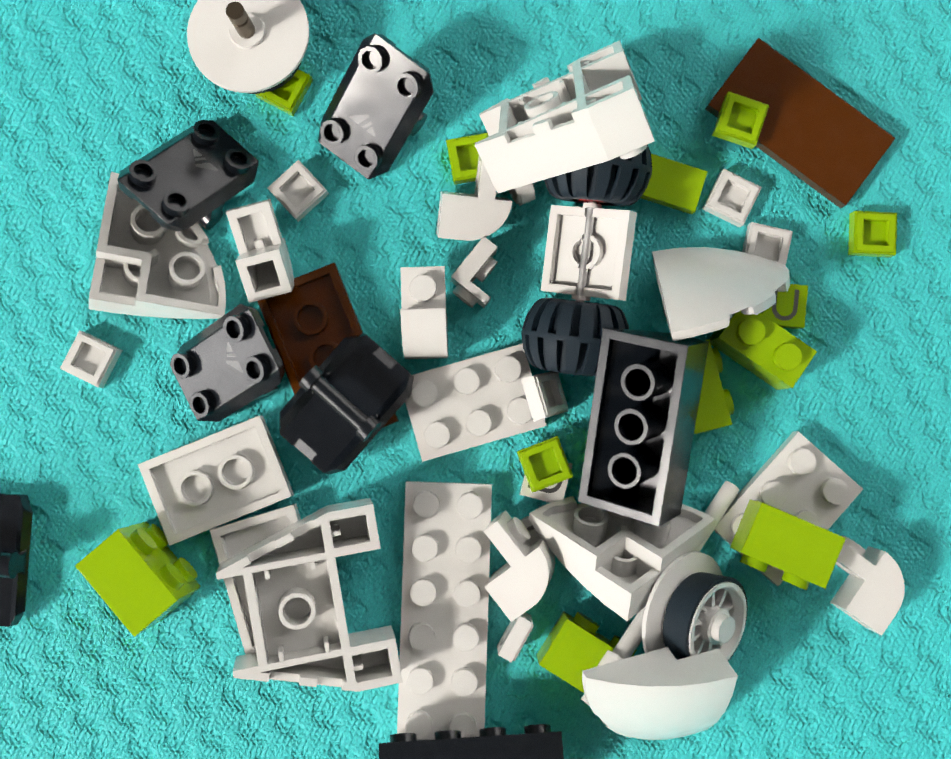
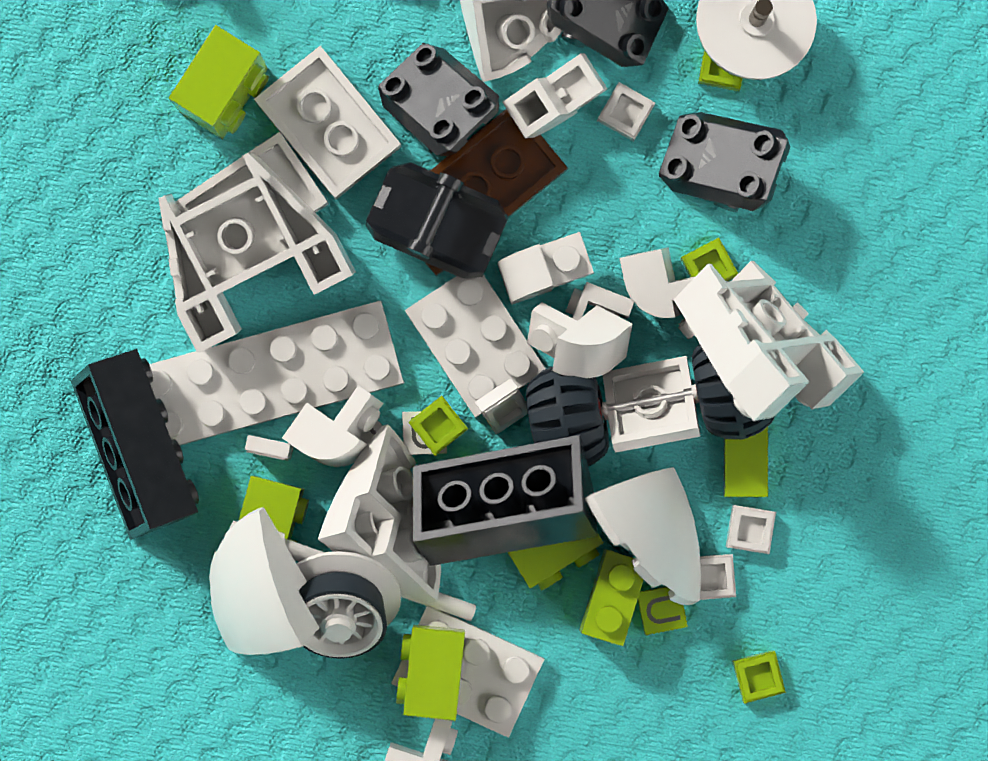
camera: 70 degrees right, 0 degrees up
(513, 302) = (582, 346): none -> white brick
(740, 120) = (826, 512): lime tile -> none
(807, 124) = (844, 573): reddish brown tile -> none

